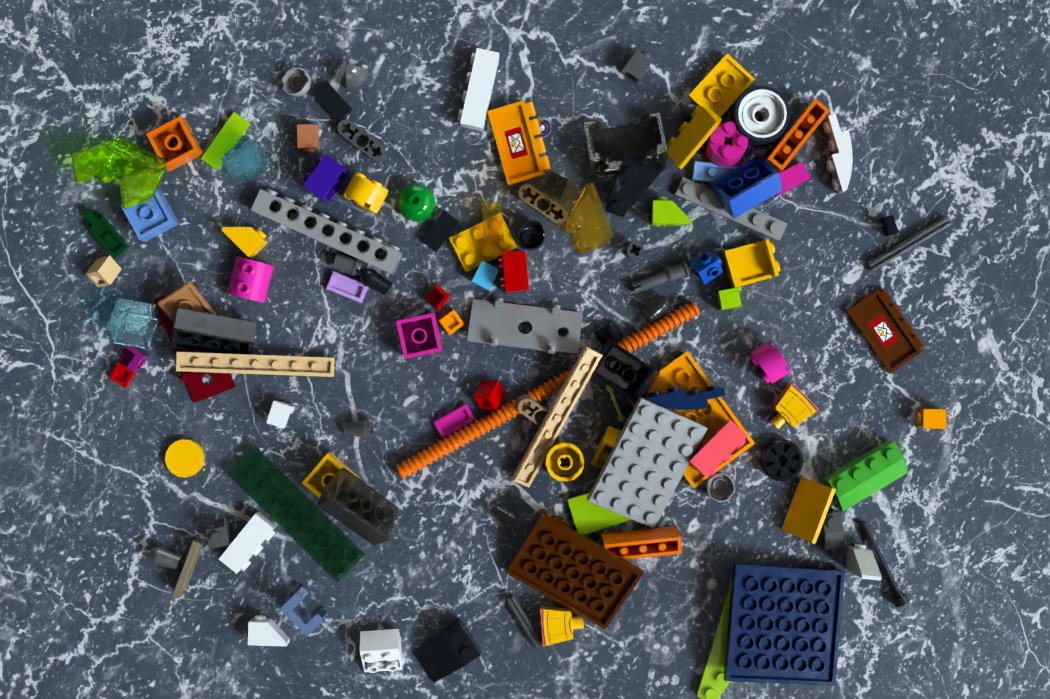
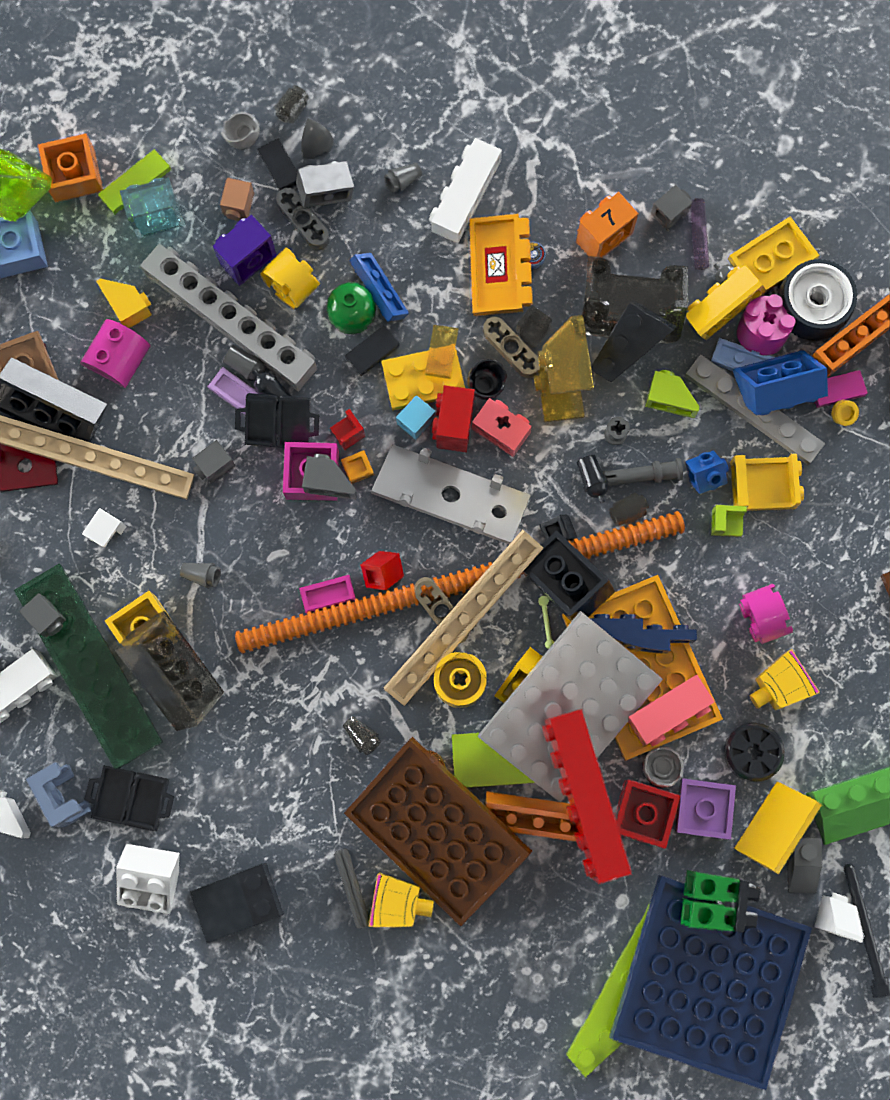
camera: 15 degrees right, 10 degrees down
(256, 489) = (43, 616): none -> dark grey brick
(329, 51) = (291, 104): none -> clear smoke brick
(344, 598) = (119, 796): none -> black piece
(345, 345) = (212, 462): none -> dark grey brick
(371, 110) = (324, 184): none -> brick
(376, 306) = (265, 422): none -> black piece
(428, 90) = (402, 177): none -> dark grey cone
(433, 181) = (379, 286): none -> blue plate
(434, 342) = (325, 478): none -> dark grey slope
(539, 269) = (507, 438): none -> coral brick
(592, 96) = (606, 226): none -> orange brick
(625, 290) = (593, 478): none -> black piece
(662, 82) = (699, 234): none -> clear purple axle
(675, 529) = (587, 797): none -> red brick
(715, 523) = (646, 813): none -> red brick
(756, 508) = (705, 809): none -> medium lavender plate
(778, 573) = (728, 905): none -> green hips
(797, 196) = (845, 412): none -> yellow tile

